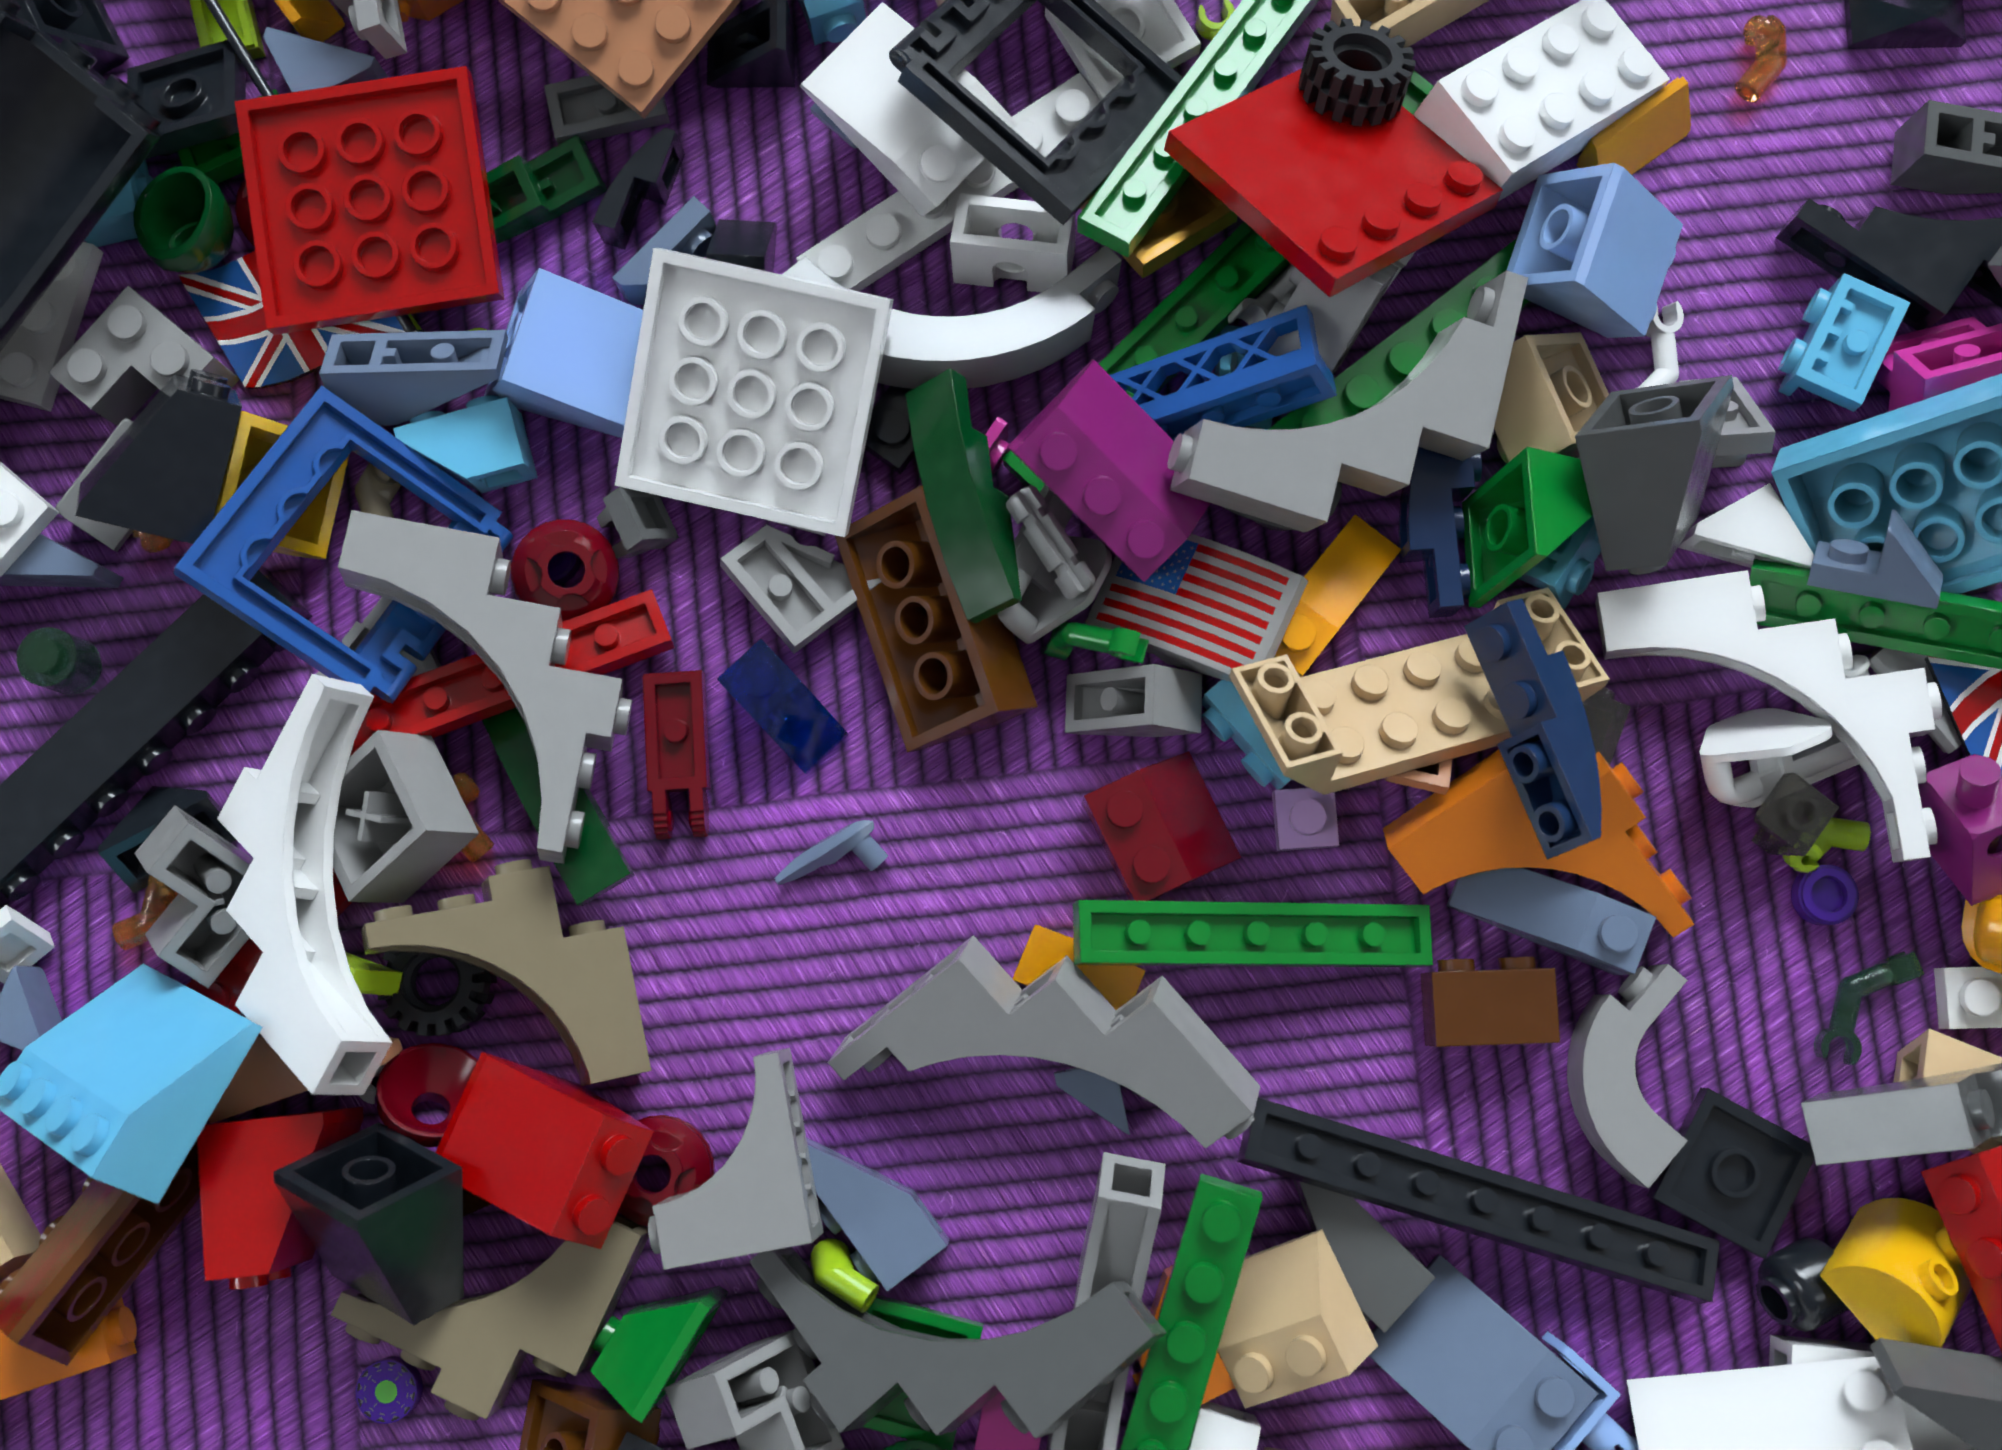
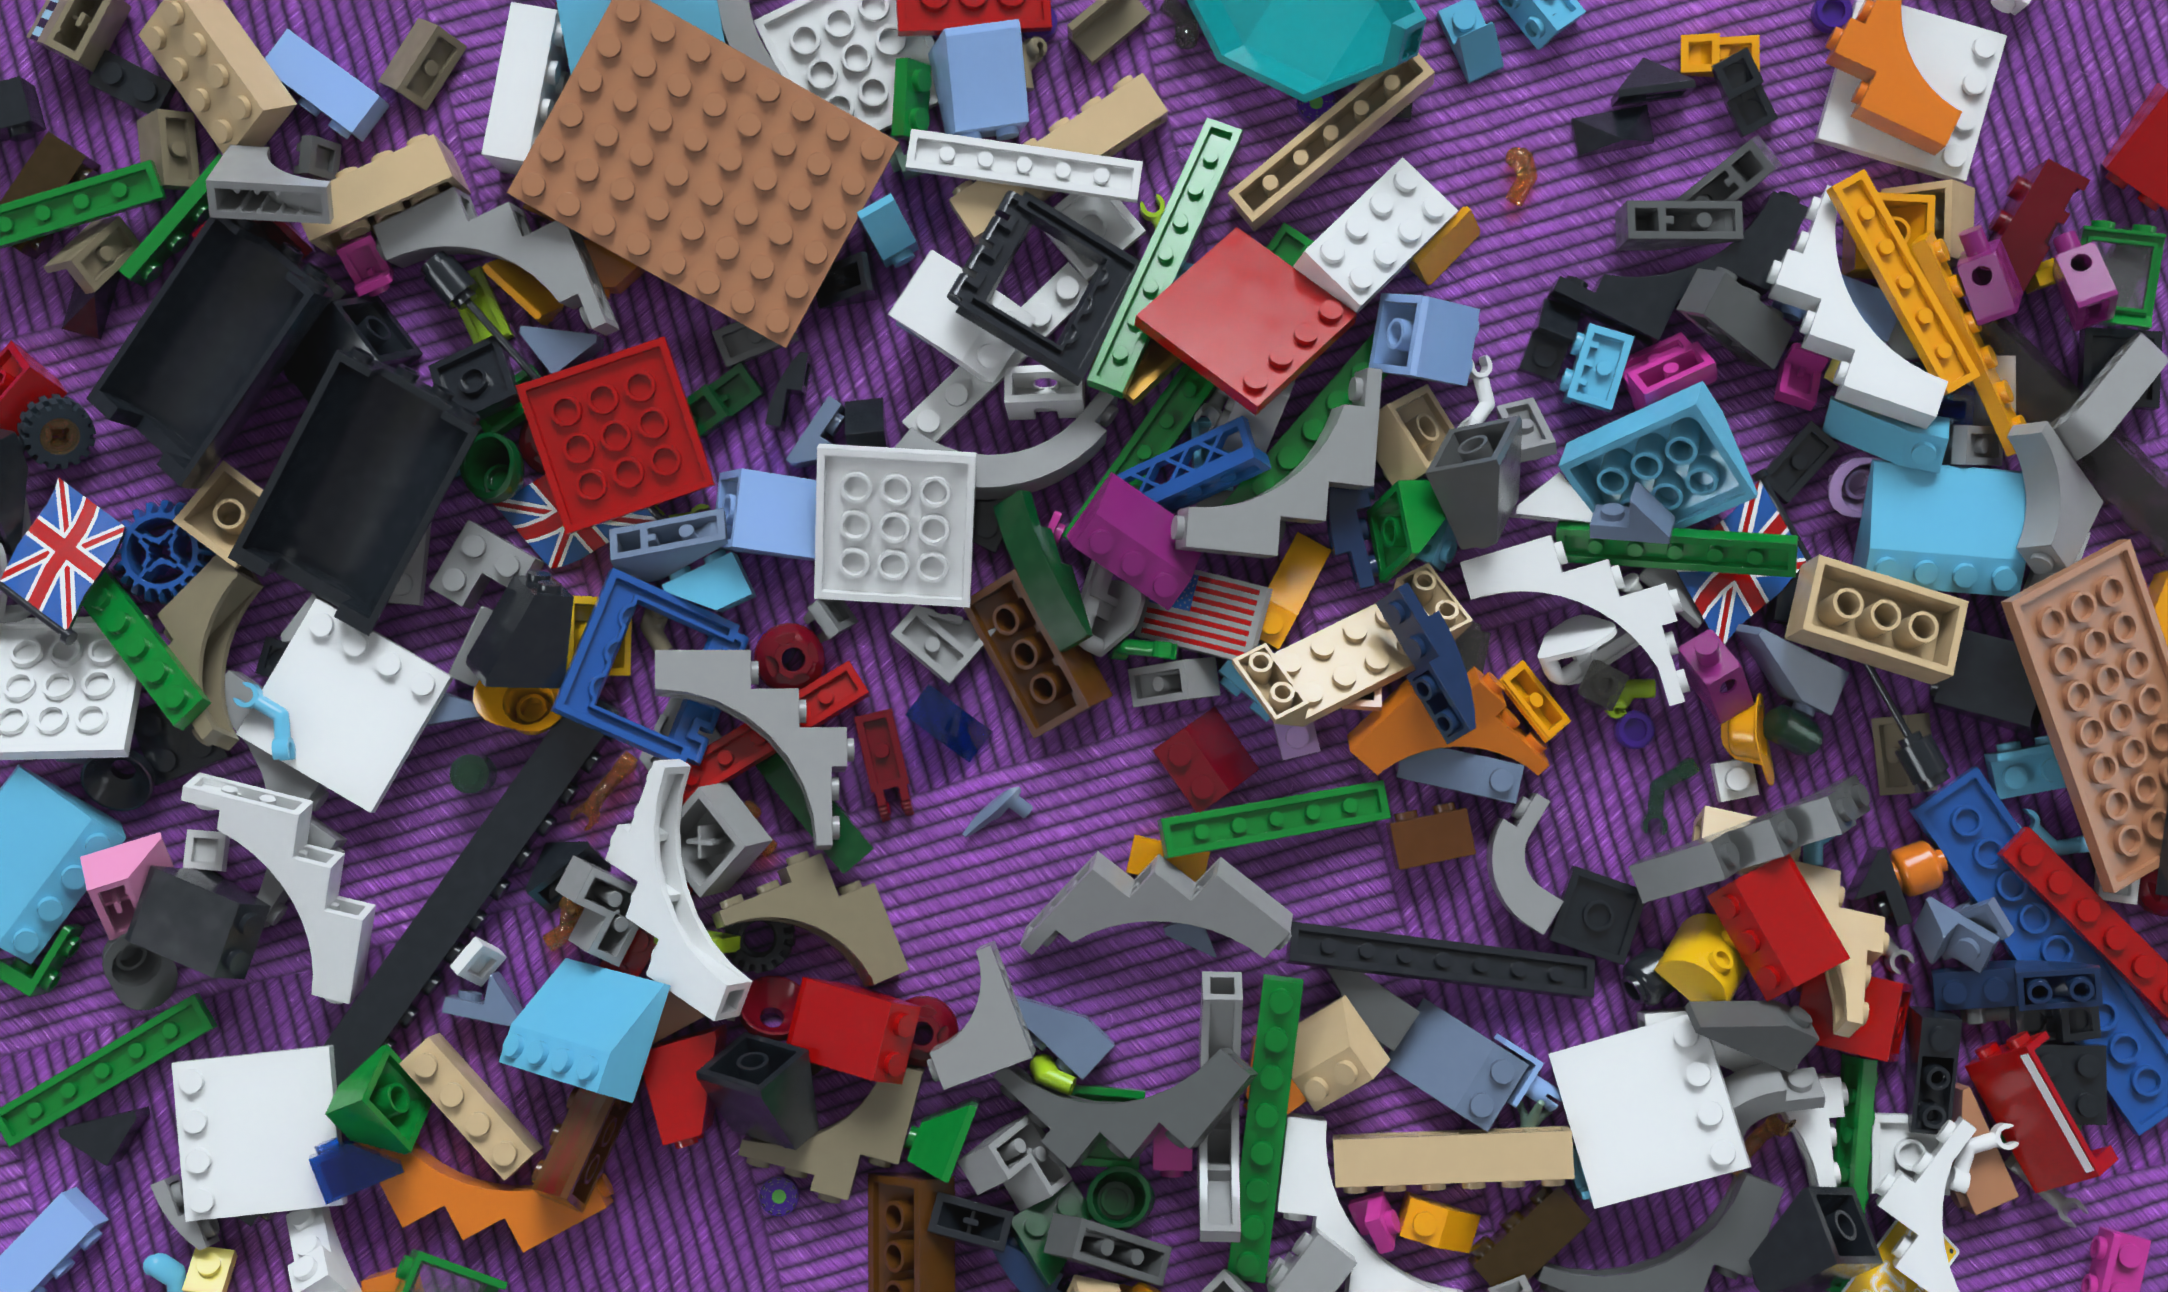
camera: 10 degrees left, 5 degrees up
(137, 569) = (517, 708): none -> light orange piece
(281, 695) = (621, 770): none -> clear orange arm
(1050, 542) = (1104, 593): light grey axle -> none
(1356, 72) = (1256, 231): black tyre -> none
(1682, 823) = (1534, 701): none -> light orange slope
(1772, 299) = (1549, 340): none -> black slope

